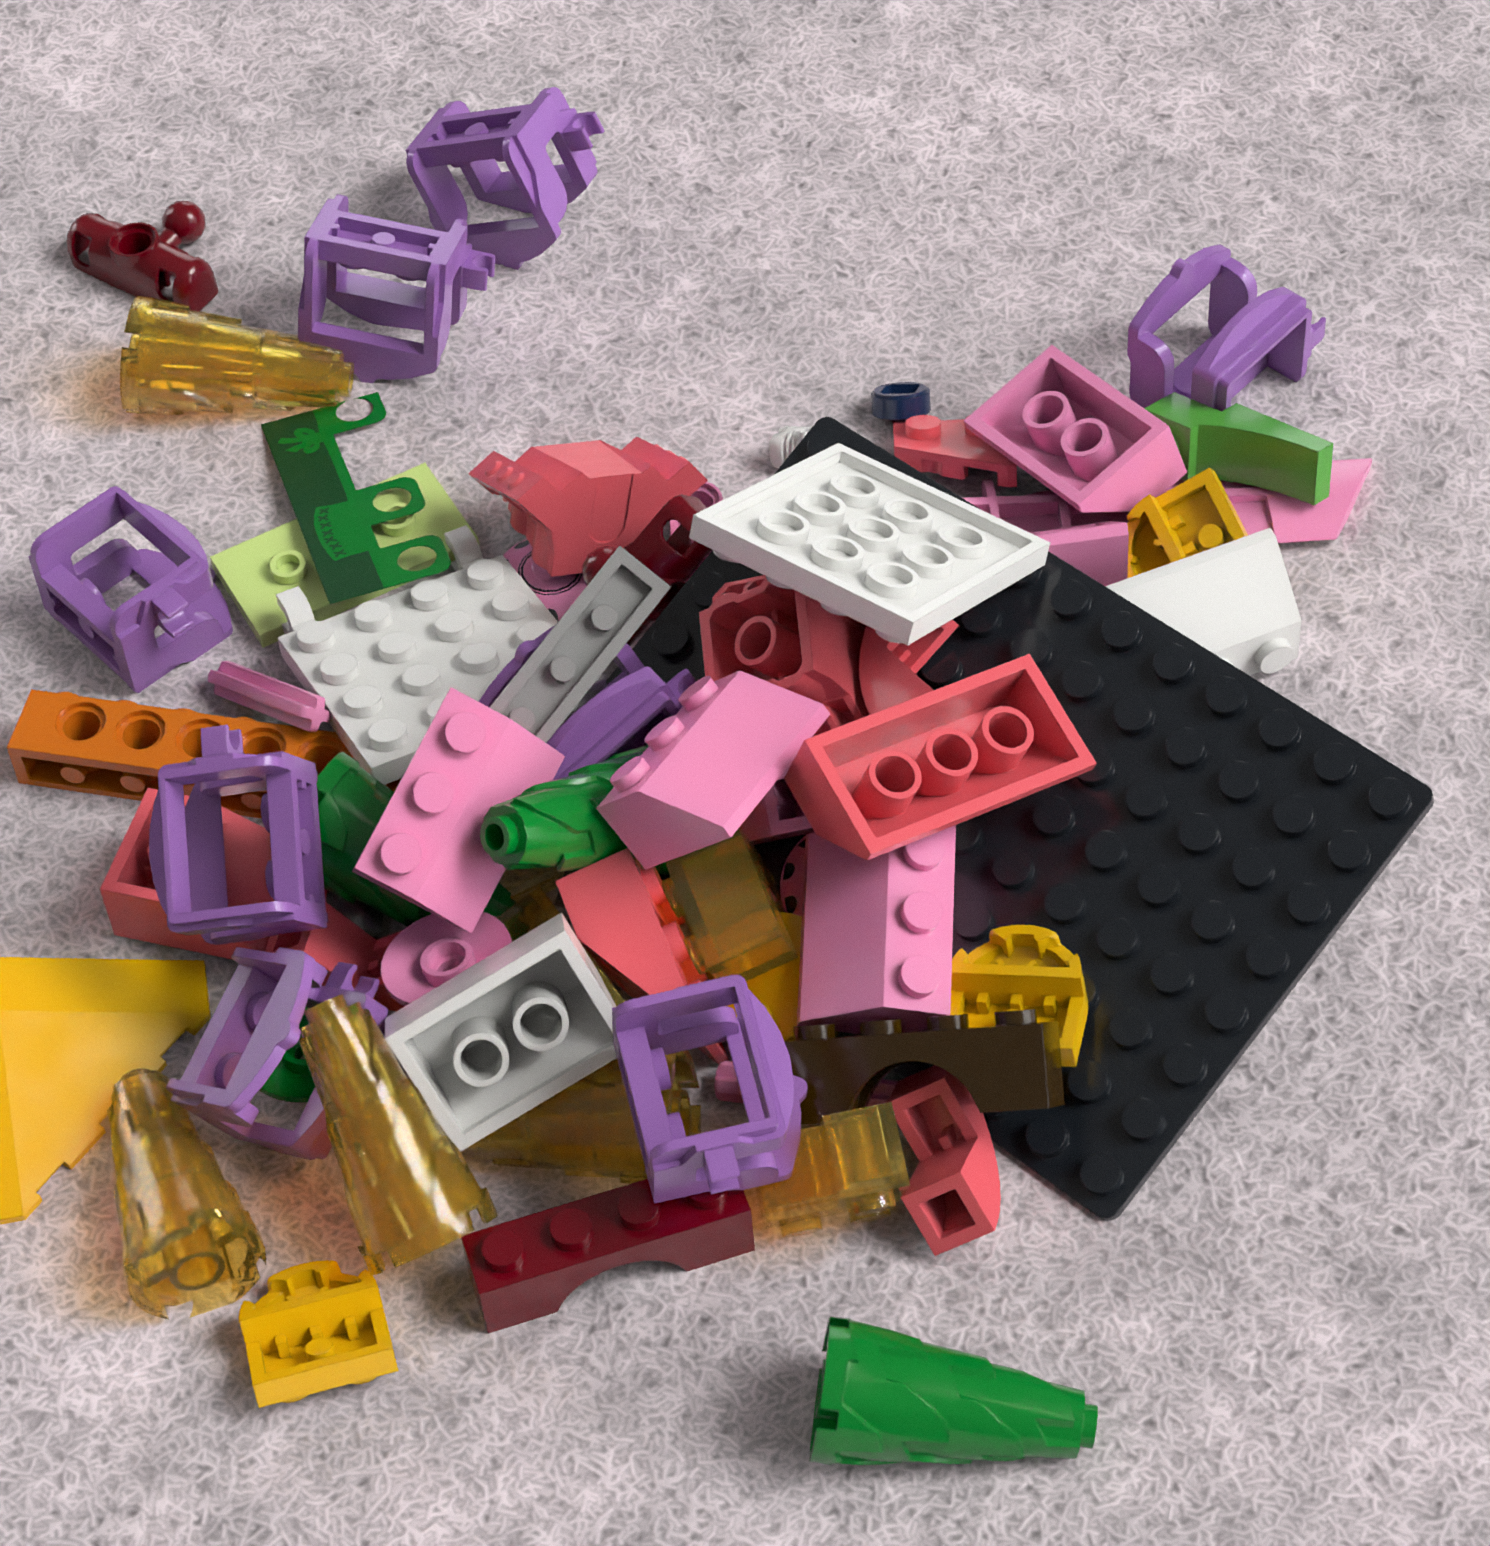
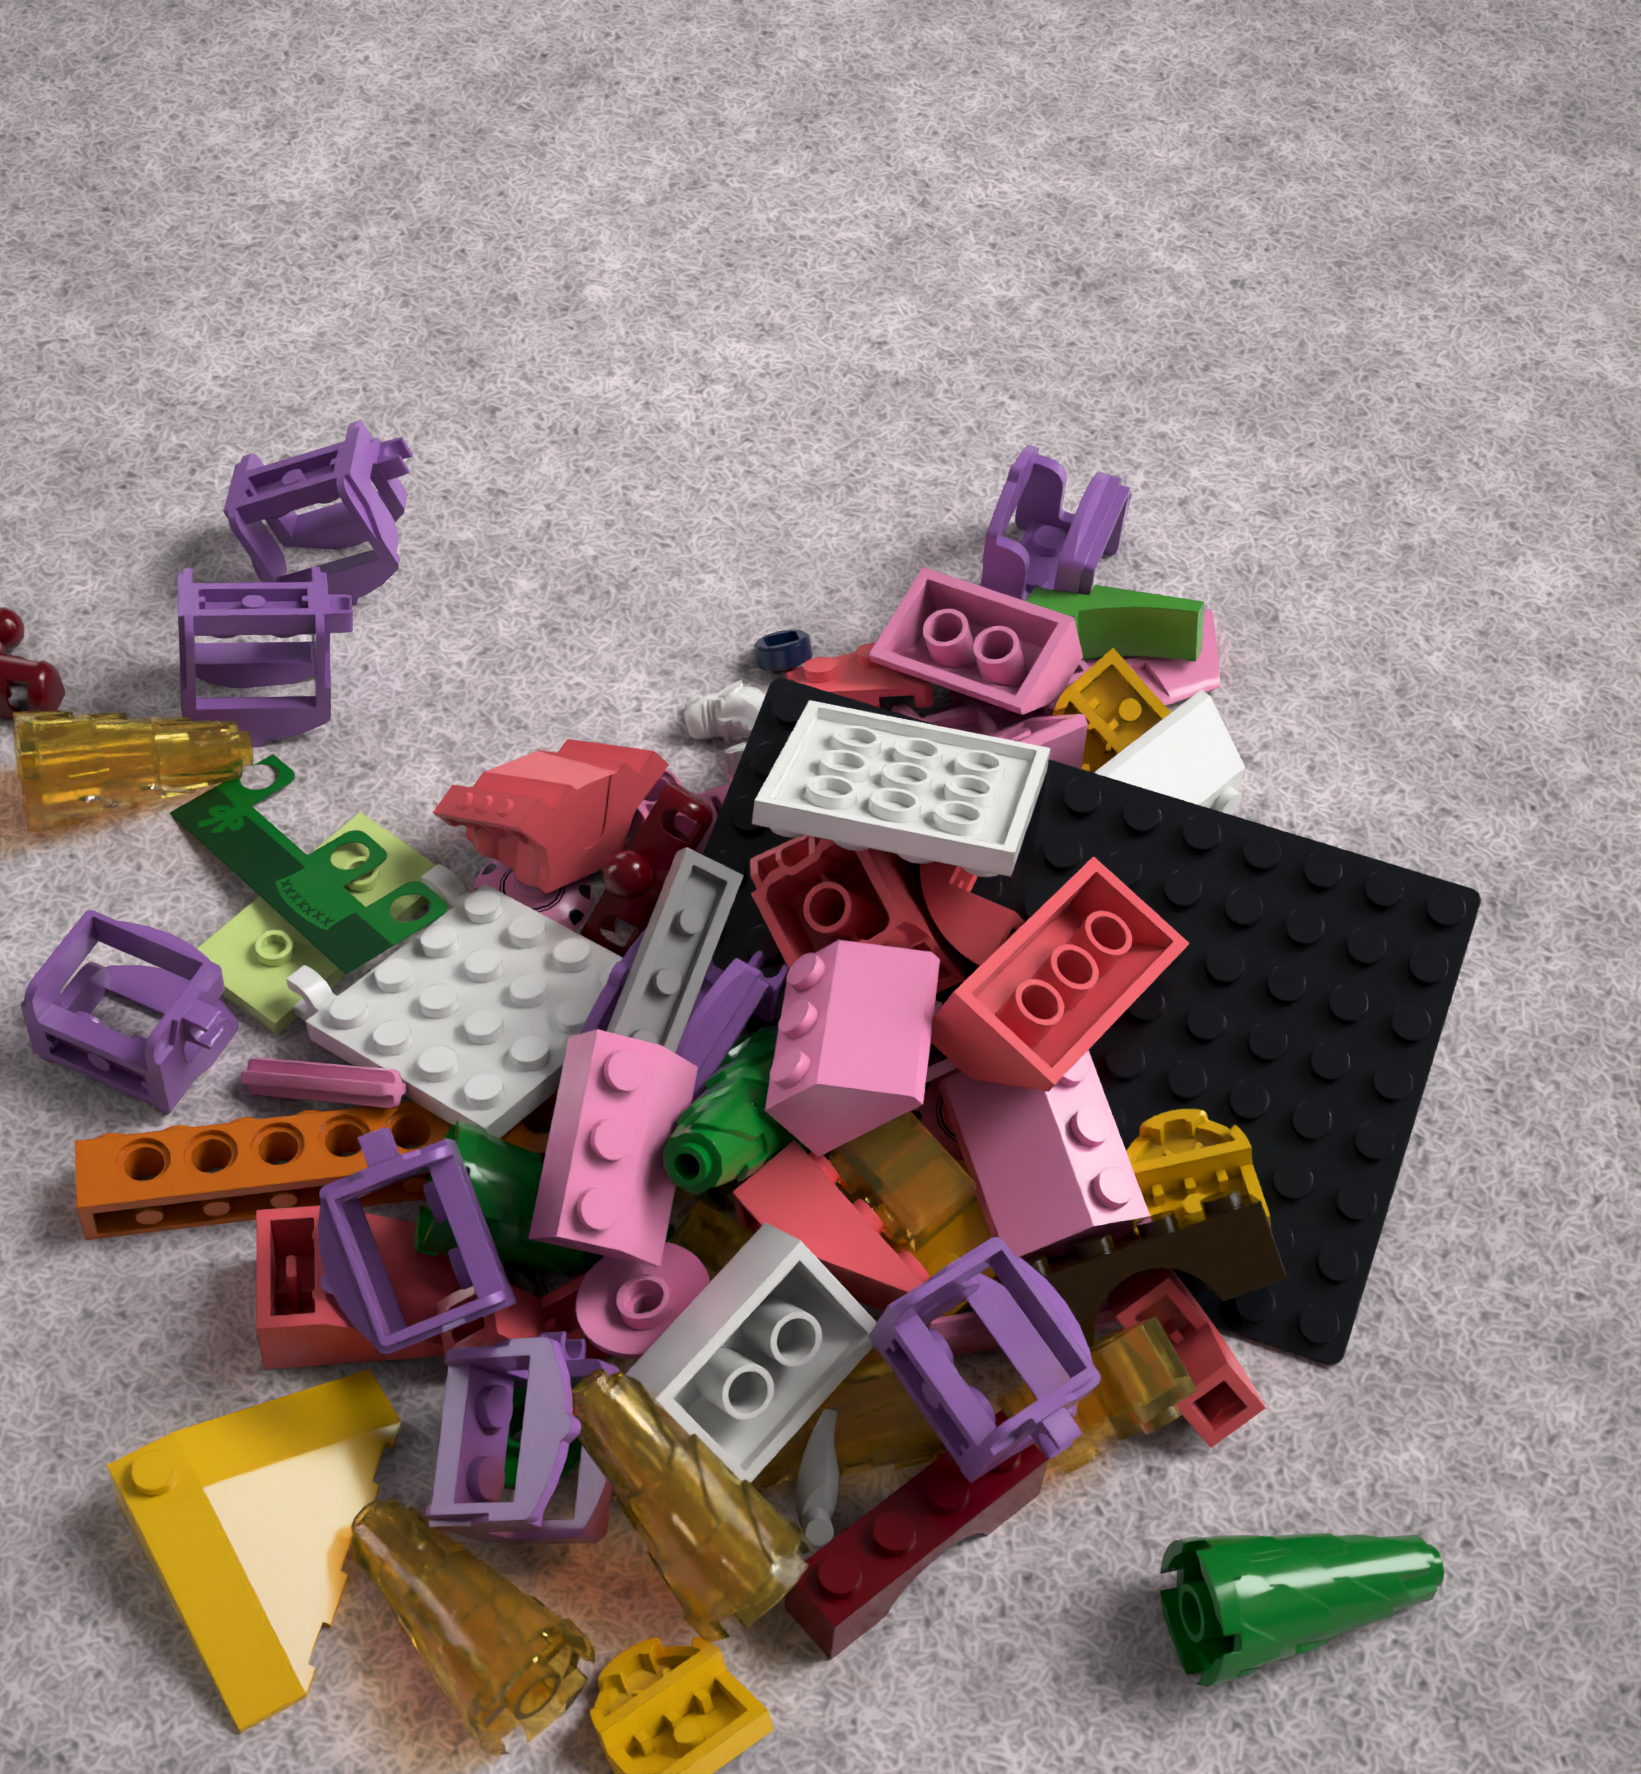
camera: 30 degrees left, 0 degrees up
(529, 1166) = (818, 1481): none -> light grey bar

